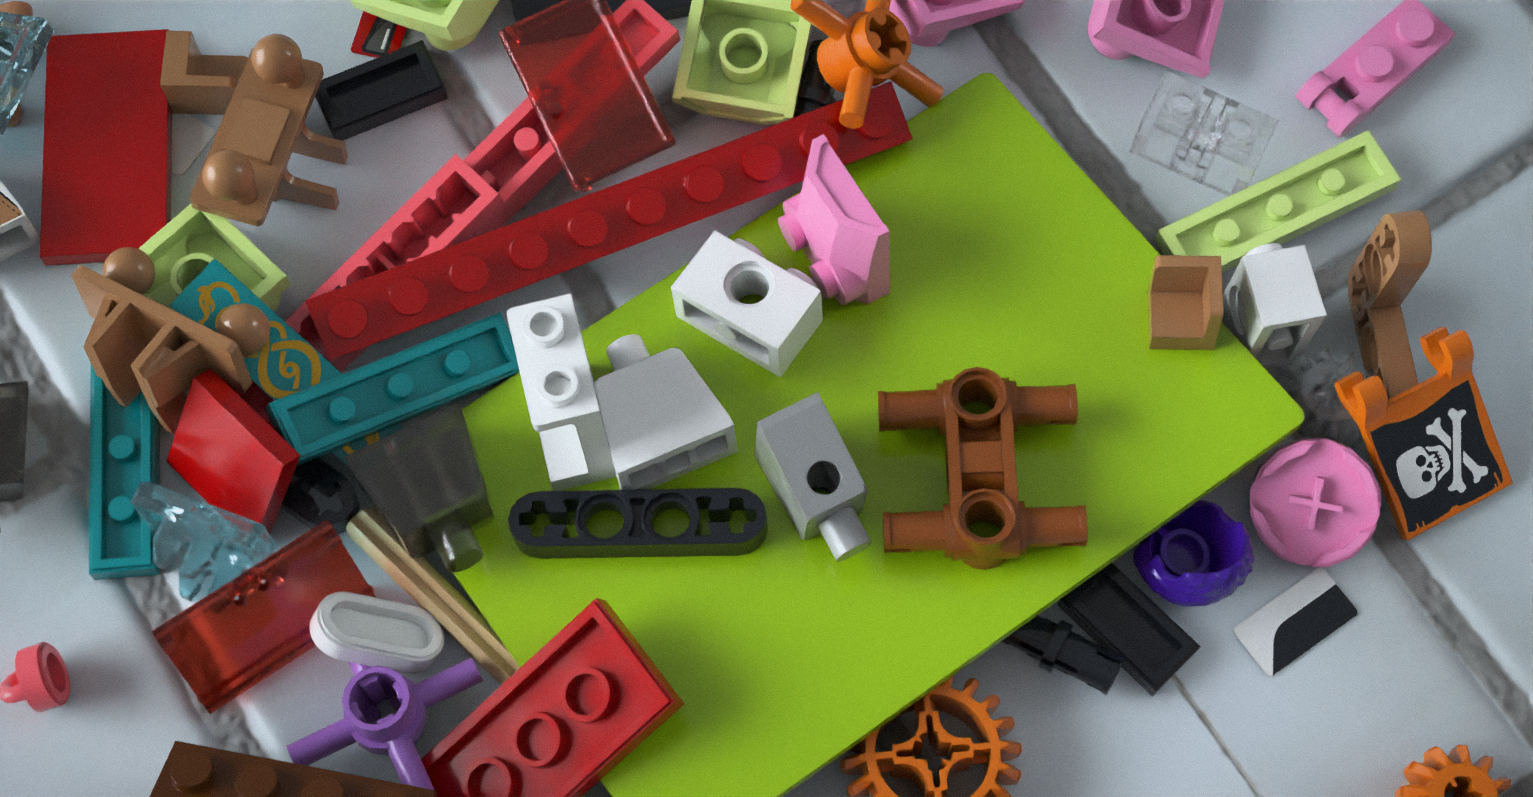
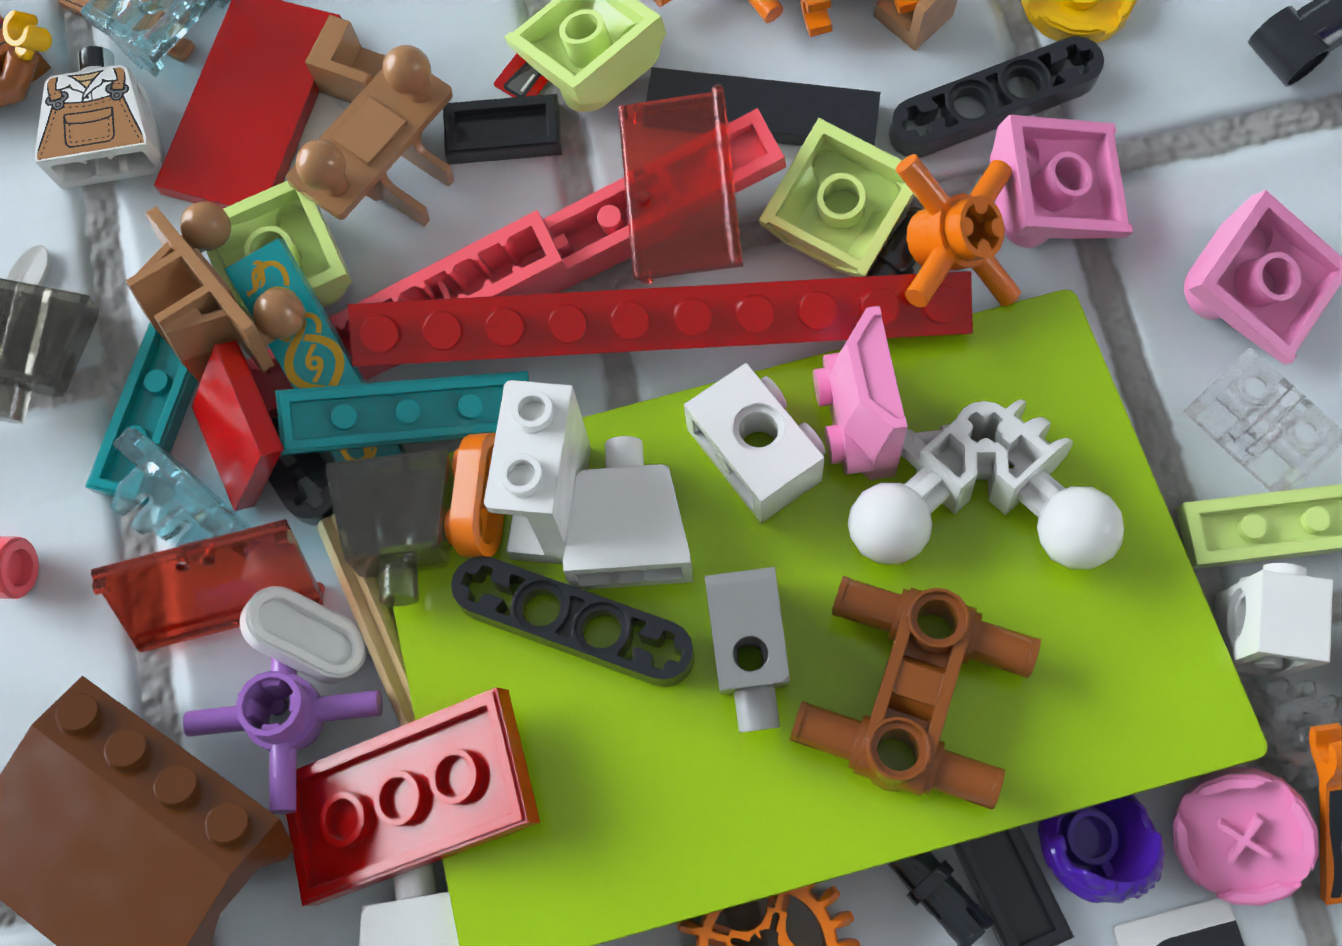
camera: 30 degrees right, 5 degrees up
(497, 422) = (468, 522): none -> orange plate
(904, 327) = (1074, 524): none -> white piece
(1185, 302) = (1185, 593): medium nougat panel -> none

